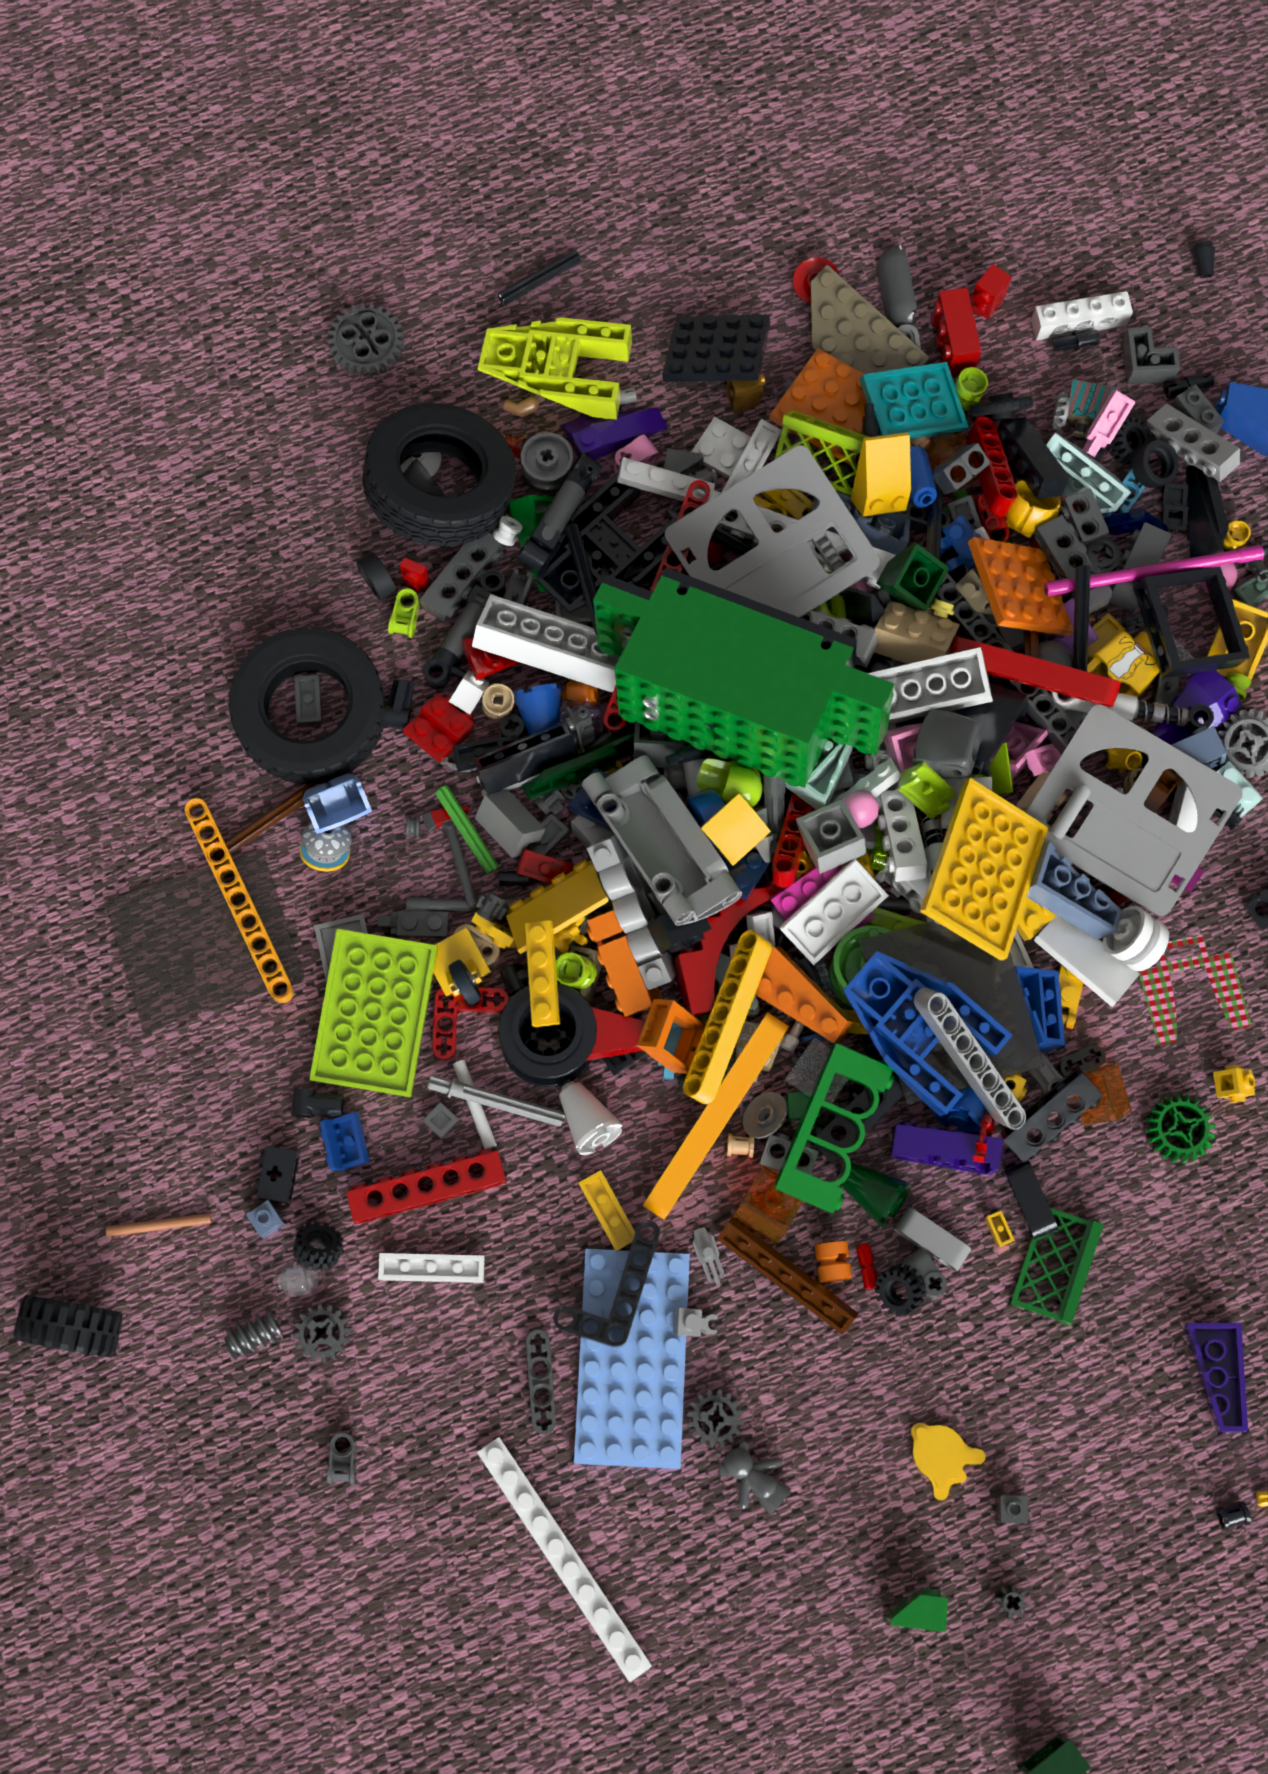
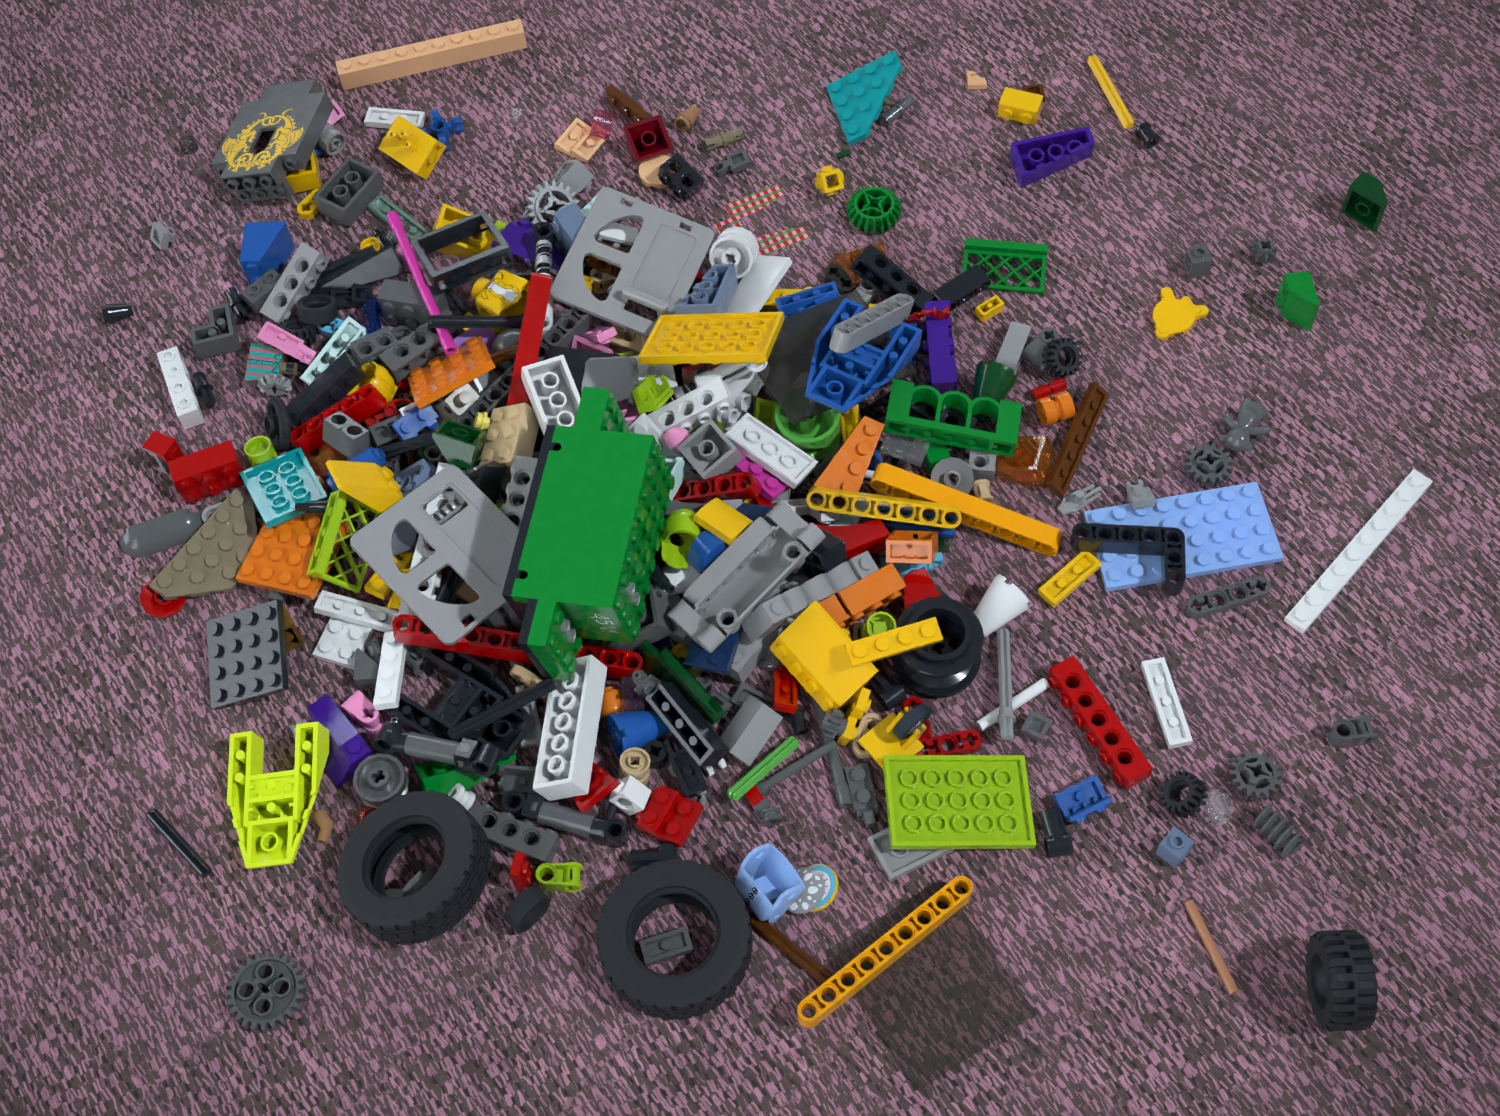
camera: 95 degrees left, 15 degrees down
(287, 1164) = (1141, 842): black brick -> none

